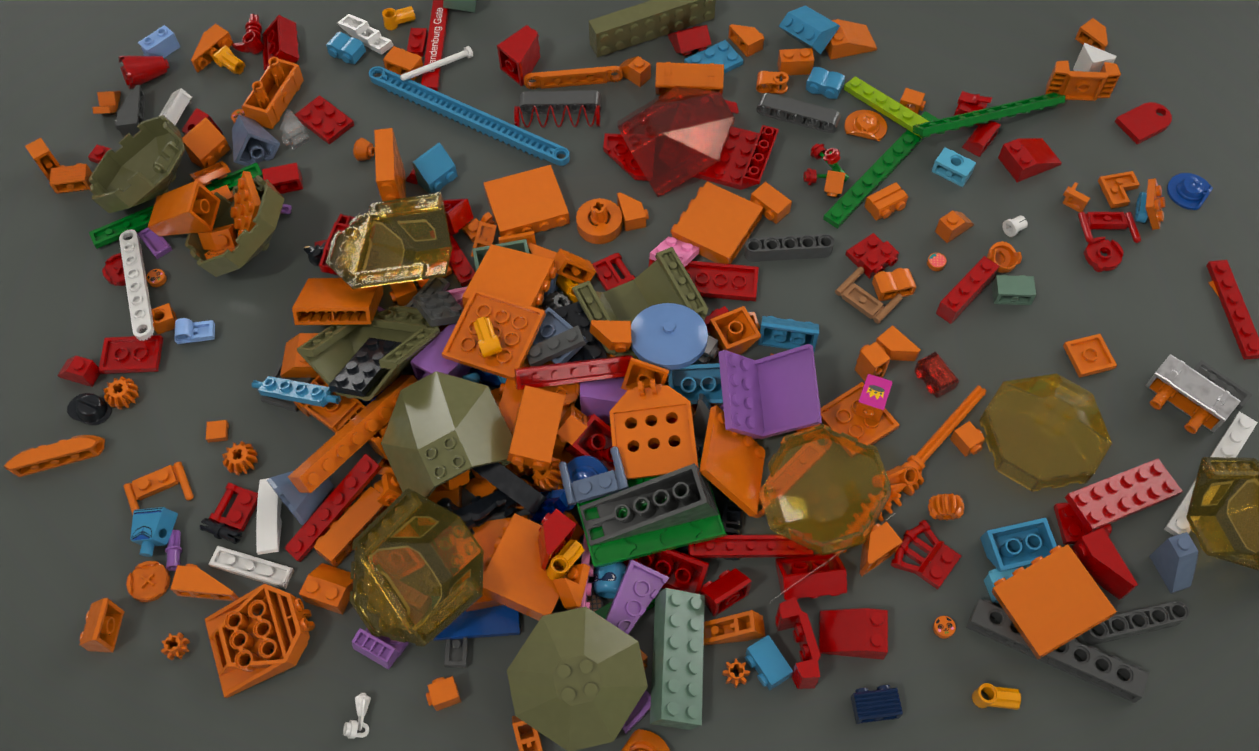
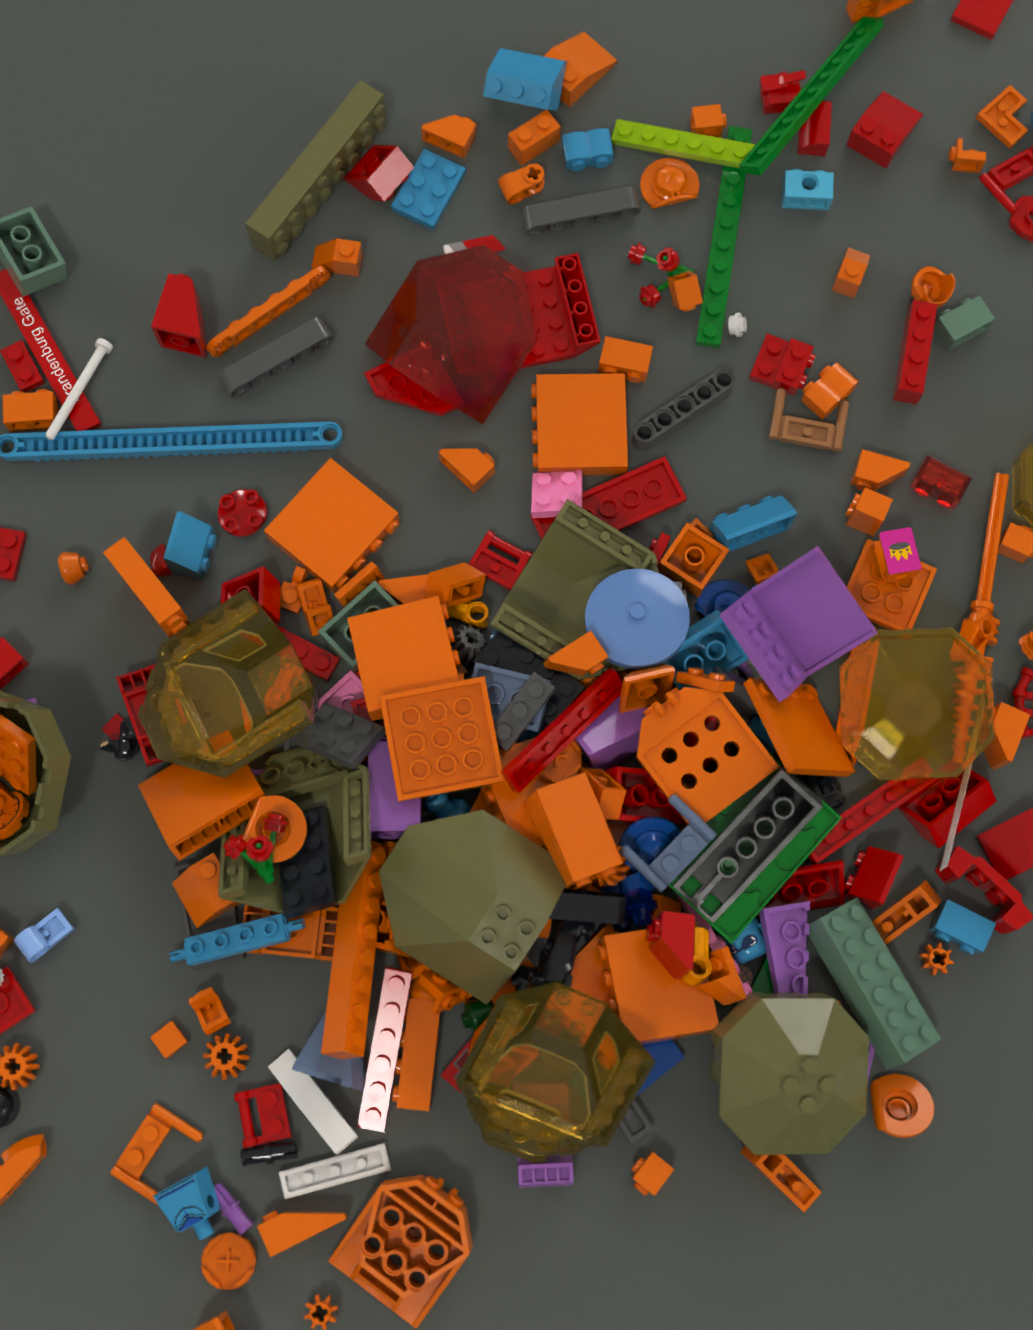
camera: 35 degrees left, 15 degrees up
(252, 425) = (209, 1010): none -> orange bracket
(328, 588) = (443, 1137): orange slope -> none
(335, 327) = (260, 848): none -> red plant
(350, 728) = (580, 1270): white piece -> none
(360, 336) = (286, 843): none -> orange hat
(480, 170) = (242, 512): none -> red dish
(488, 341) = (448, 755): light orange piece -> none
(517, 118) = (338, 352): red piece -> none
(599, 212) = (431, 482): orange piece -> none
(687, 391) = (713, 682): none -> orange plate
(689, 75) = (423, 238): orange piece -> none
(856, 218) = (737, 324): none -> white plate
(886, 201) = (757, 282): orange brick -> none
(936, 261) = (857, 331): tile -> none
(1012, 226) = (918, 235): white bush -> none

